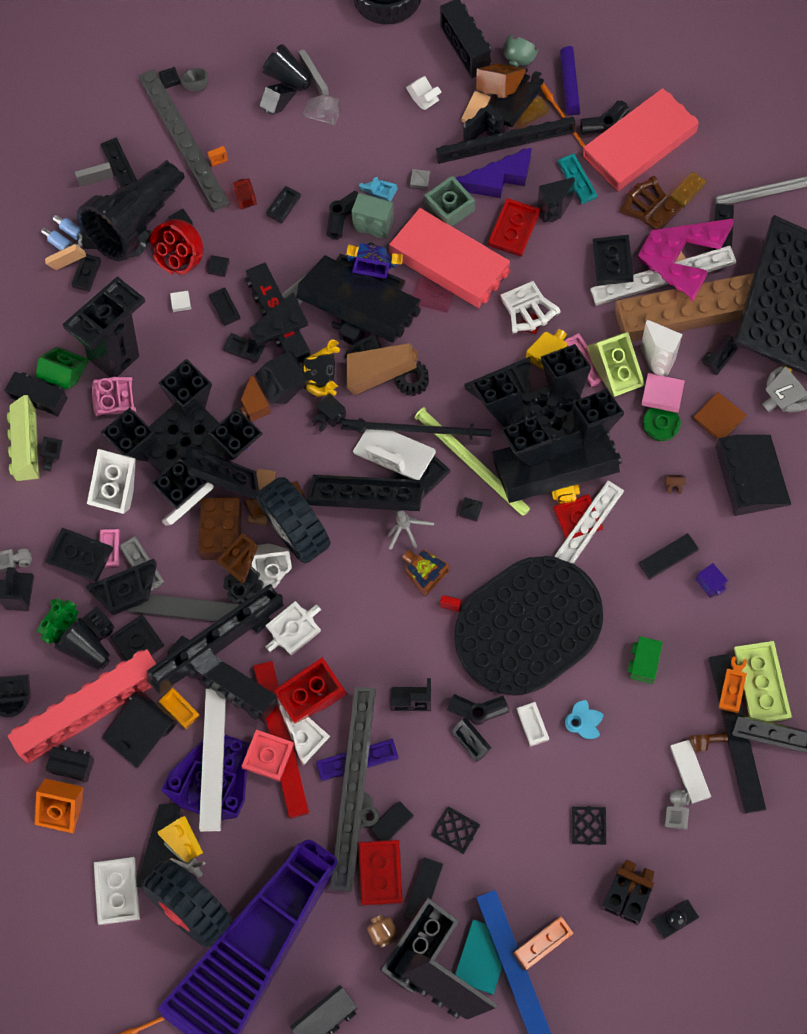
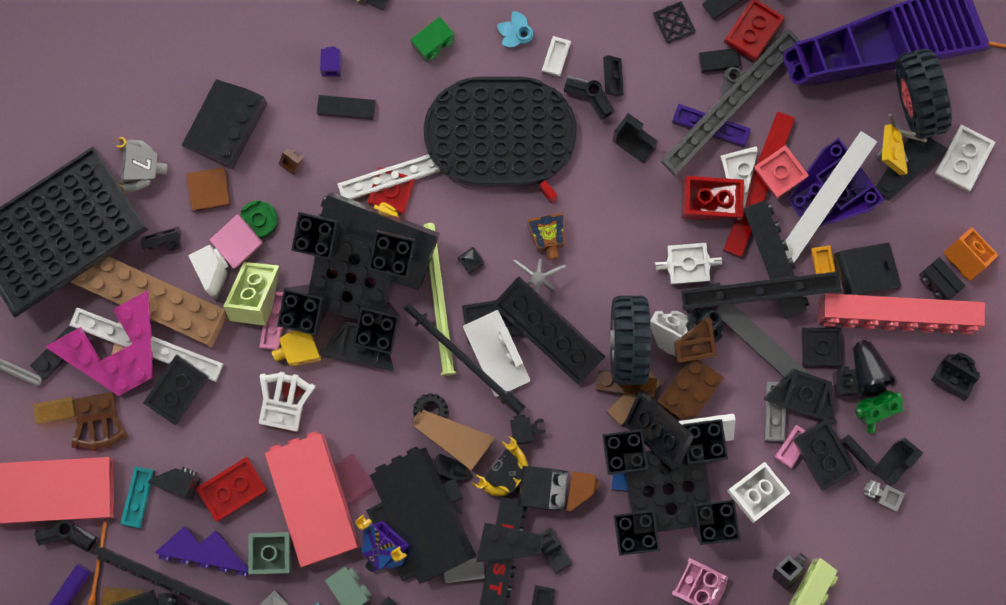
camera: 145 degrees left, 10 degrees up
(53, 576) = (856, 450): none -> black tile

